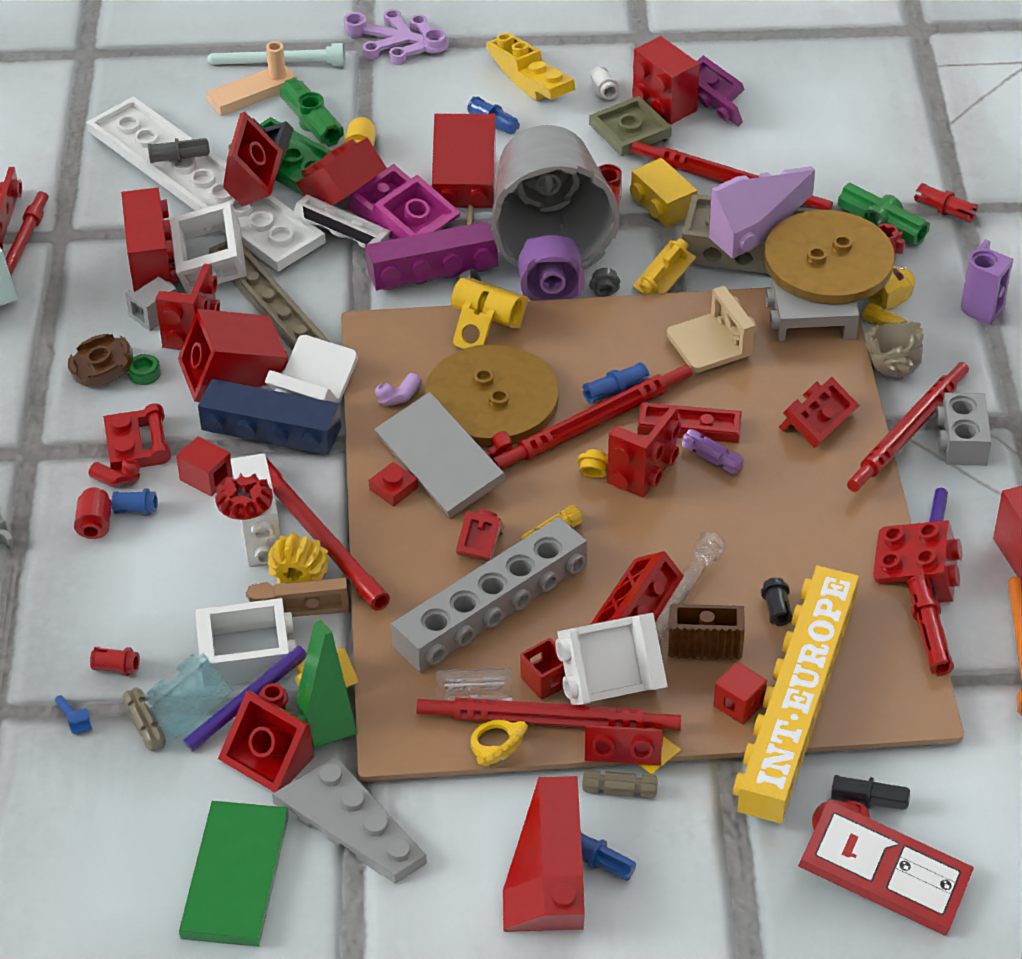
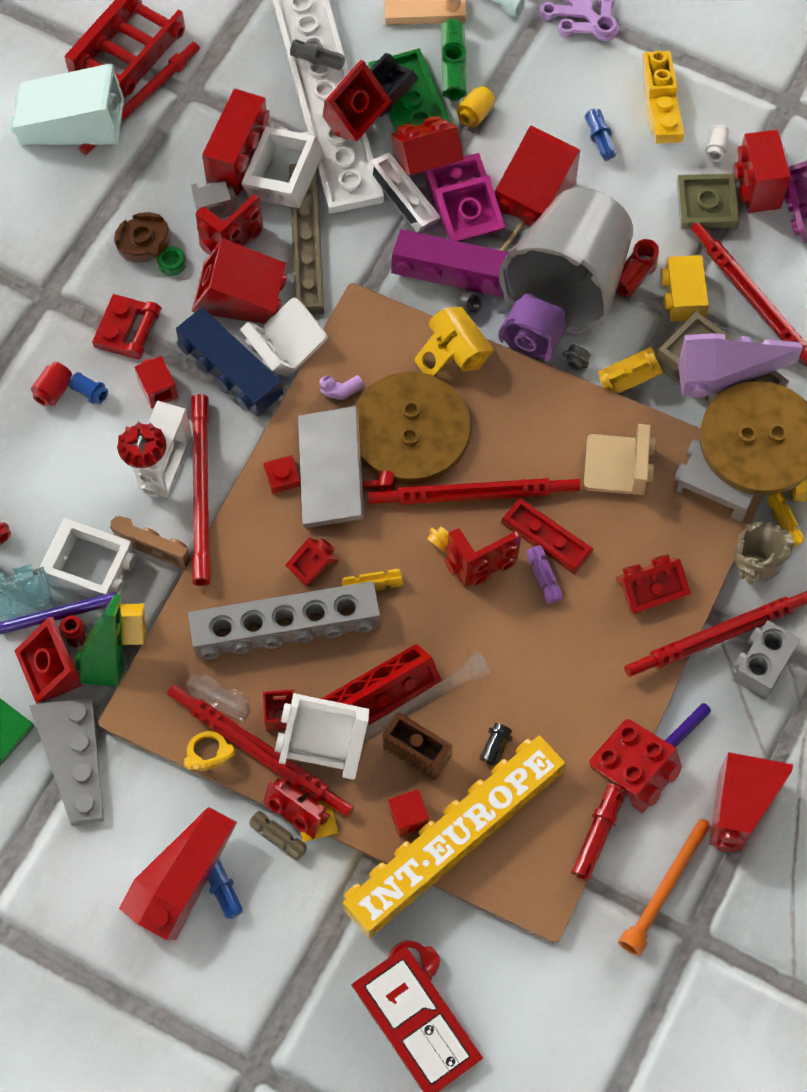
camera: 30 degrees right, 20 degrees up
(115, 477) = (90, 356): red arm -> none
(297, 559) = (164, 512): yellow gear -> none
(615, 382) = (511, 468): blue pin -> none
(870, 792) = (452, 950): black axle -> none

